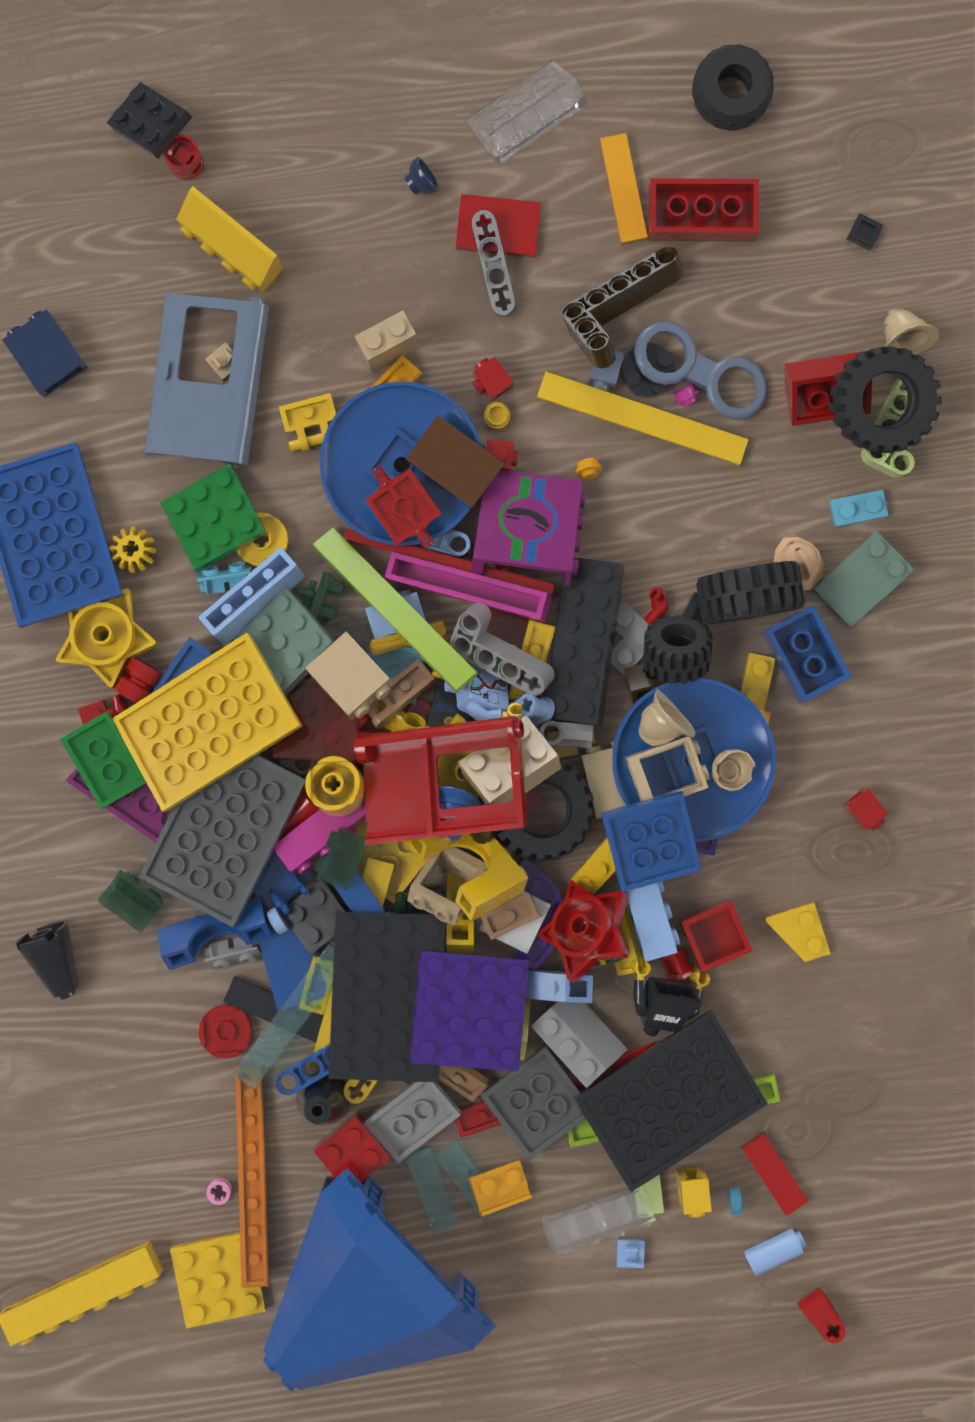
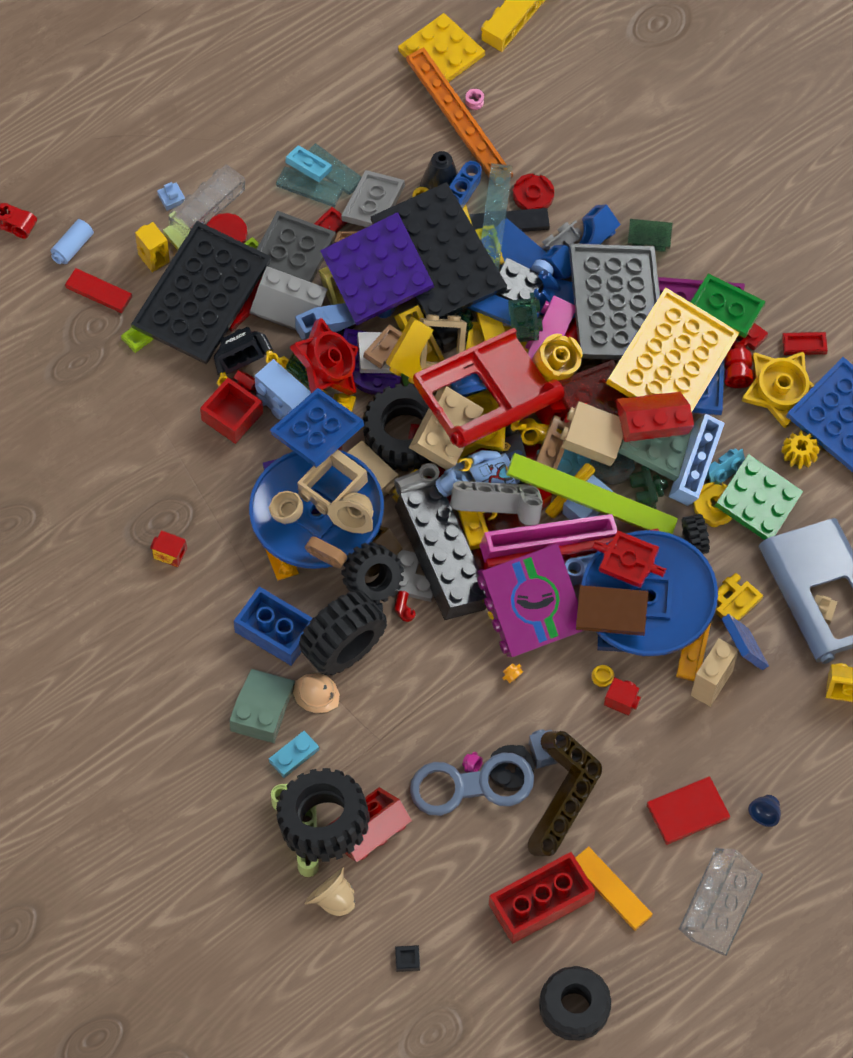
camera: 155 degrees right, 25 degrees down
(45, 676) = (808, 342): none -> red tile
(51, 958) = (680, 174): black cone -> none
(275, 653) = (654, 416): none -> red slope
(308, 509) = (696, 532): none -> black tyre
(336, 353) = (745, 642): none -> blue tile
(351, 1147) = (402, 159): red piece -> none
(365, 1296) = (340, 70): blue piece -> none
(458, 1205) = (308, 163): none -> medium azure plate
(496, 262) = (672, 778): light grey beam -> none
(499, 1187) = (286, 188): light orange plate -> none
(504, 452) = (582, 645): red brick -> none
(593, 1171) = (230, 225): none -> red tile
(642, 418) = (492, 731): yellow tile -> none
(719, 692) = (326, 552): none -> medium nougat beam
(734, 1200) = (118, 258): dark azure tile -> none
(757, 678) = (300, 593): yellow plate -> none
(801, 930) = (169, 450): yellow wing -> none

